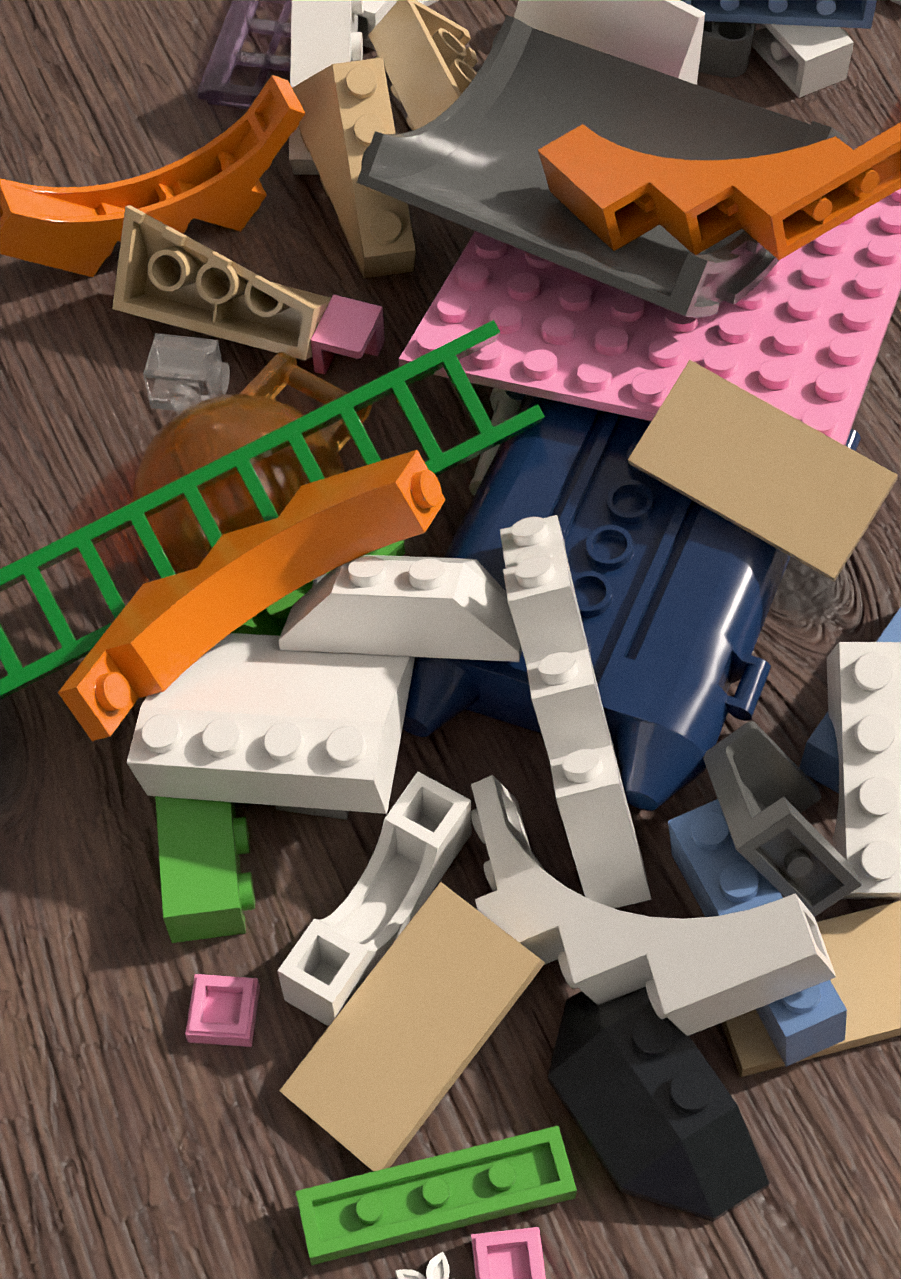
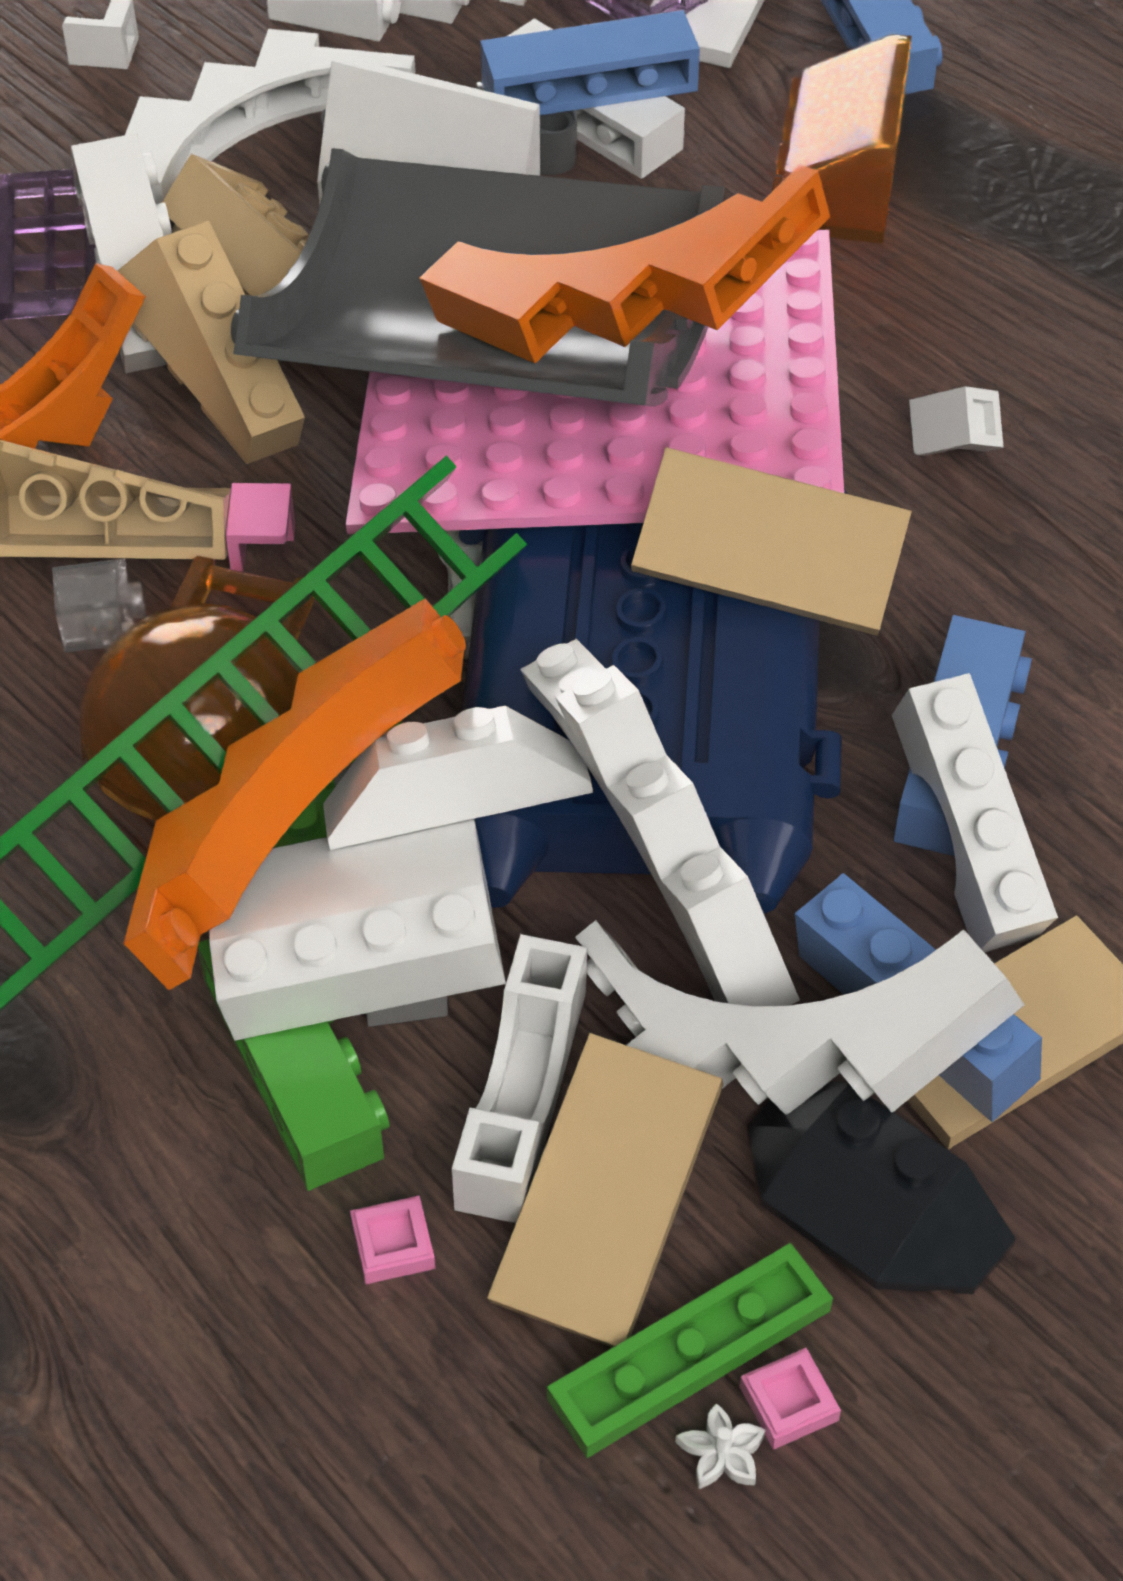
camera: 20 degrees left, 5 degrees down
(762, 806) = (902, 875): dark grey panel -> none

